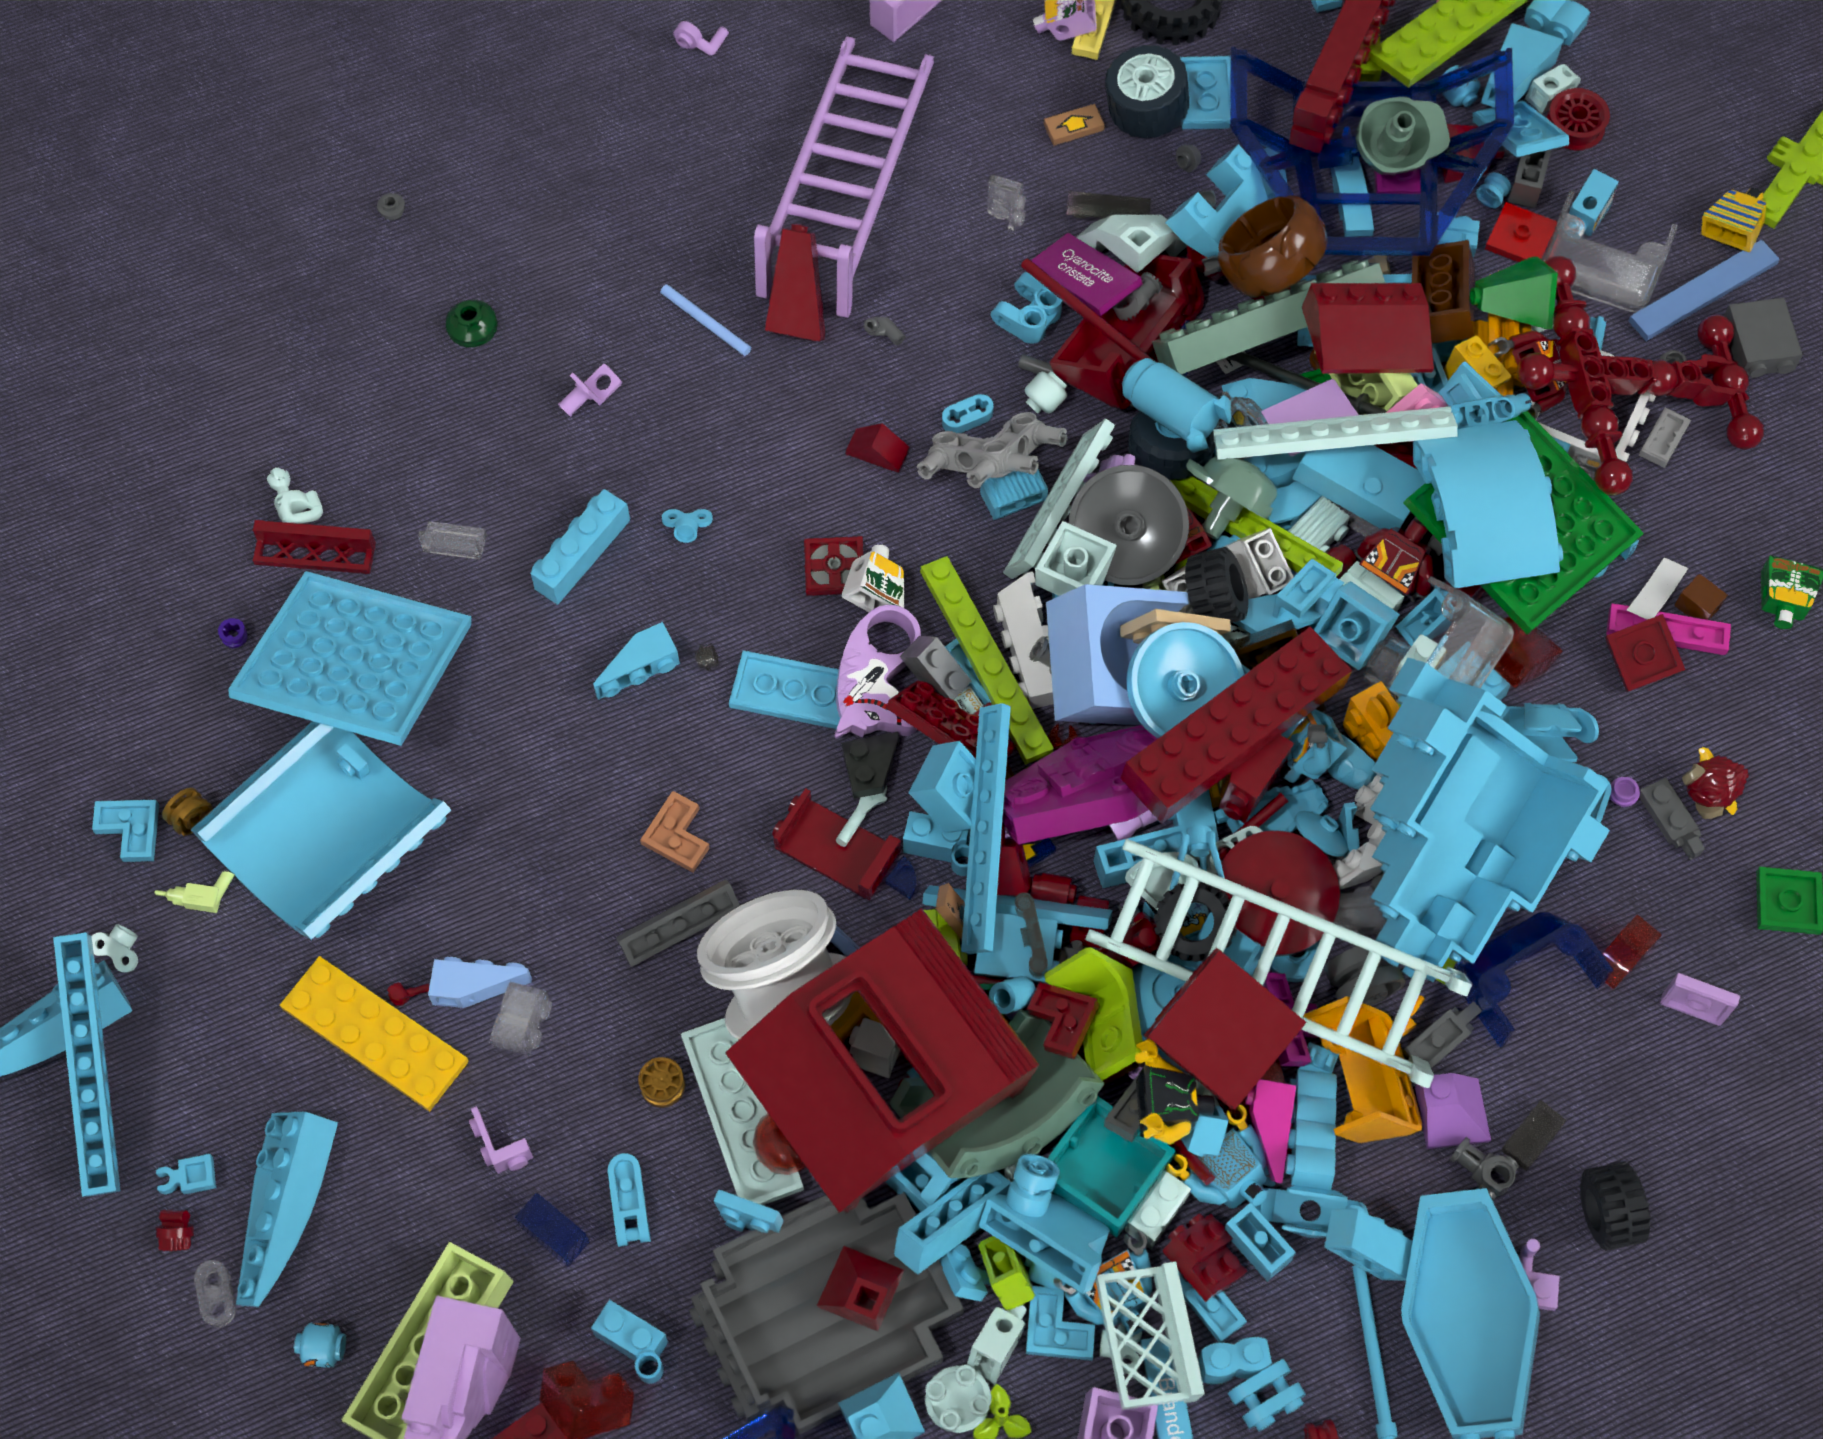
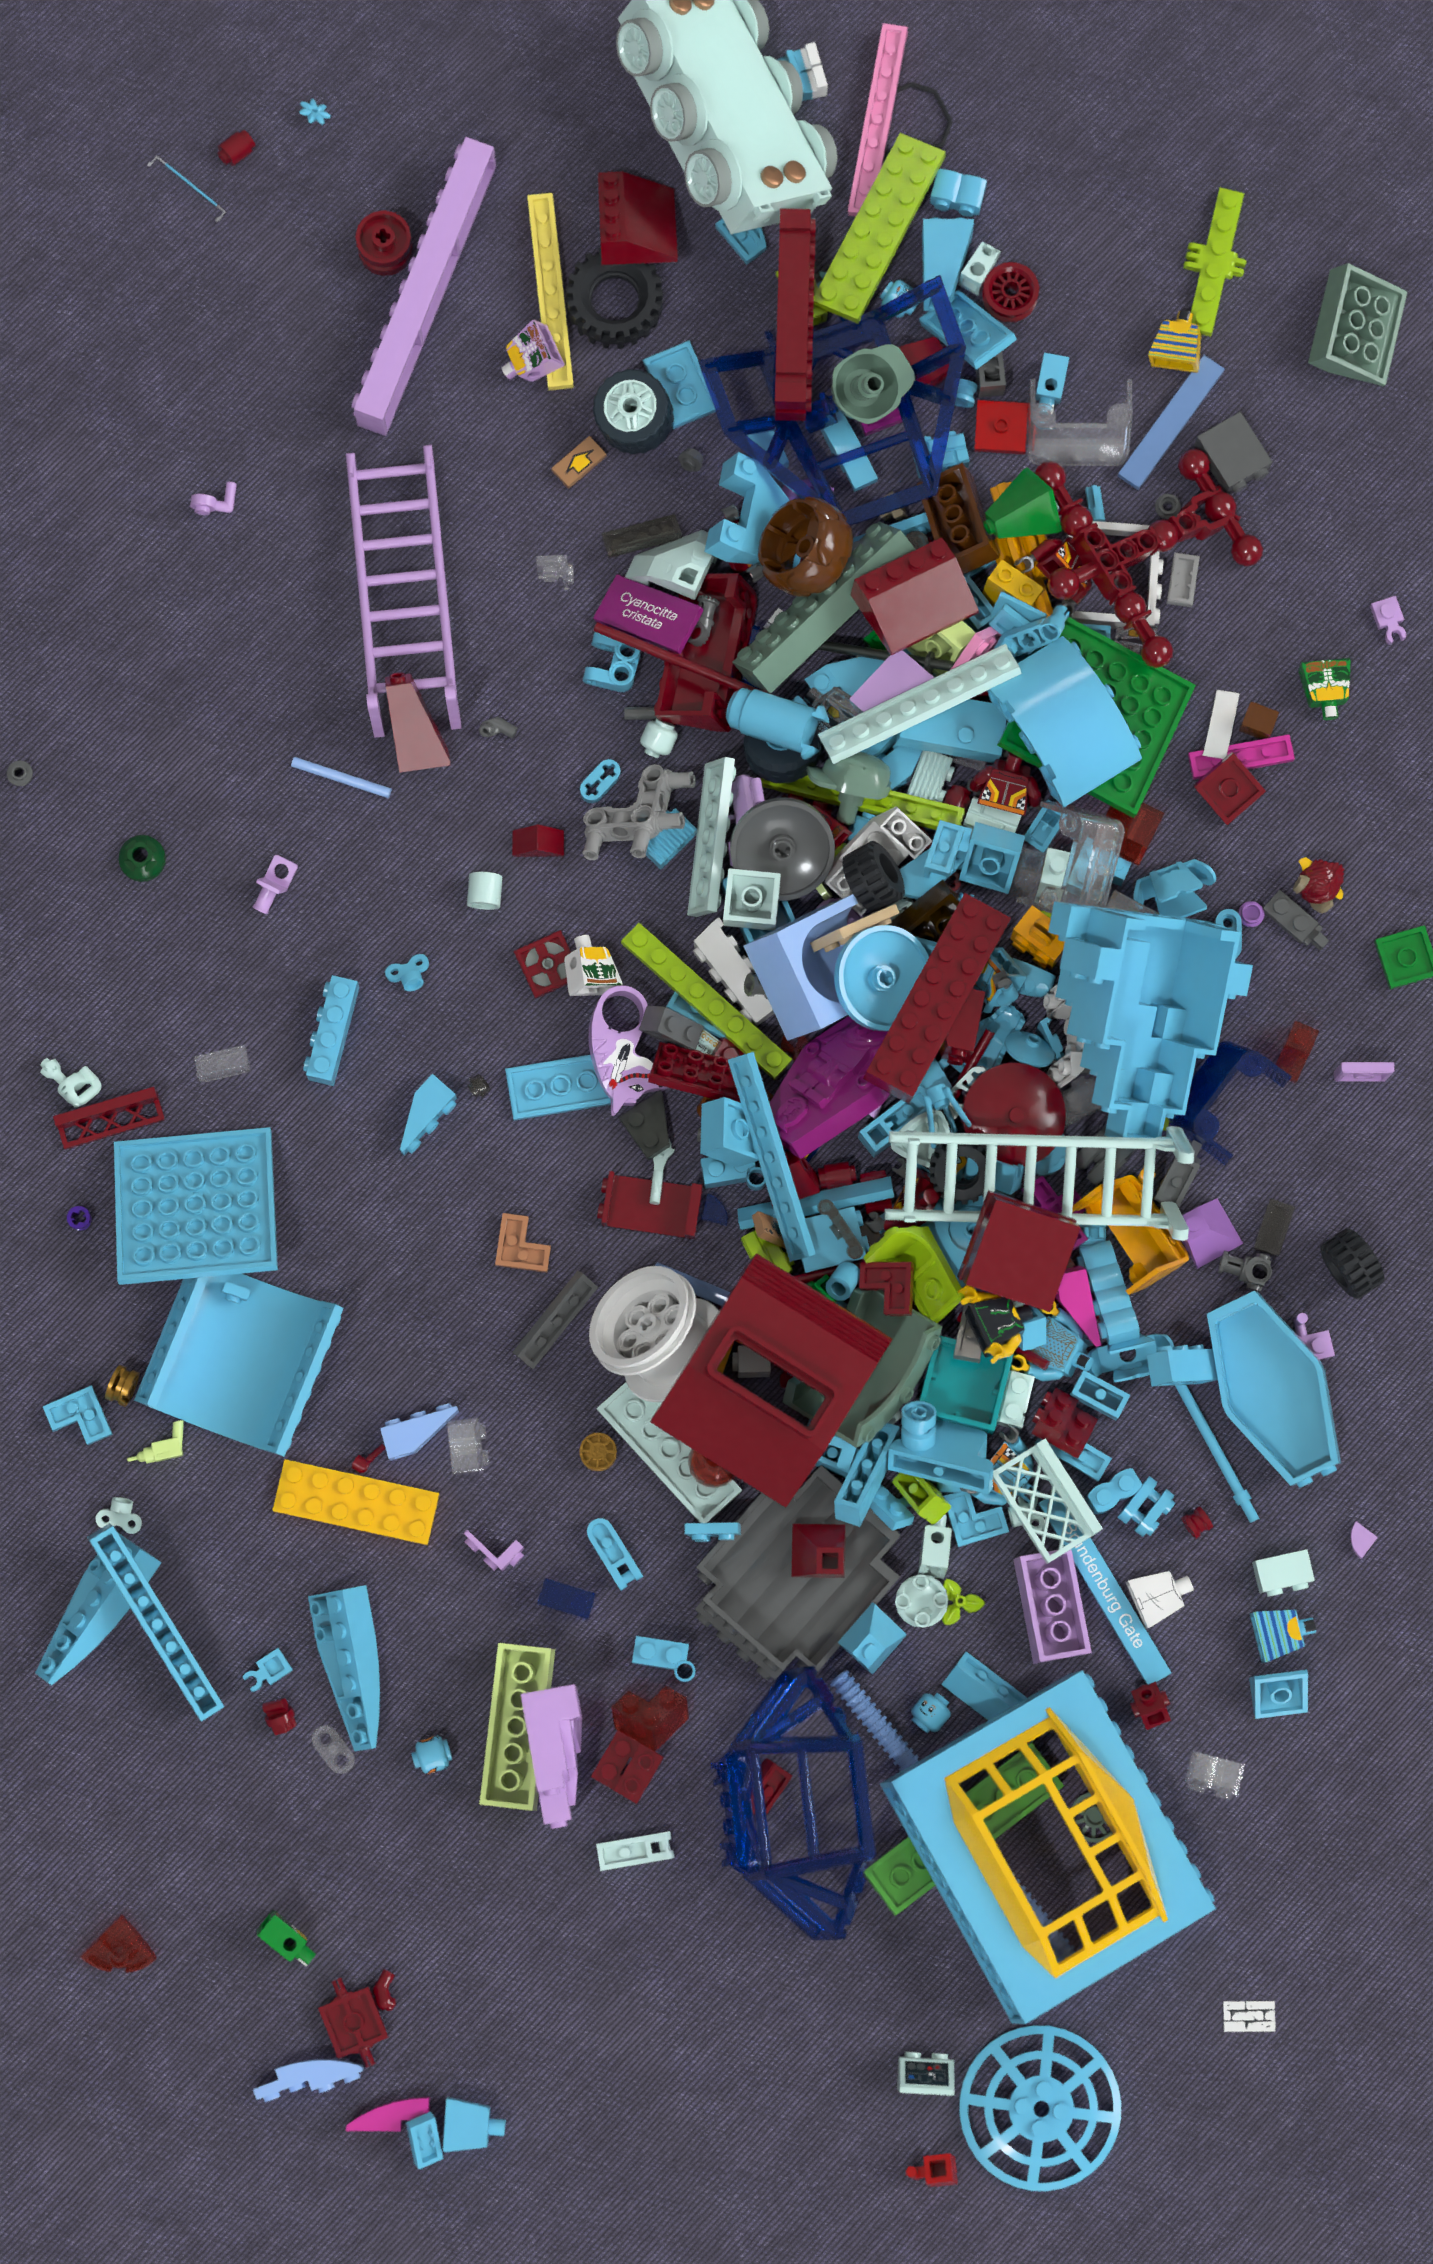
camera: 25 degrees left, 15 degrees up
(800, 470) = (484, 890): none -> light aqua piece

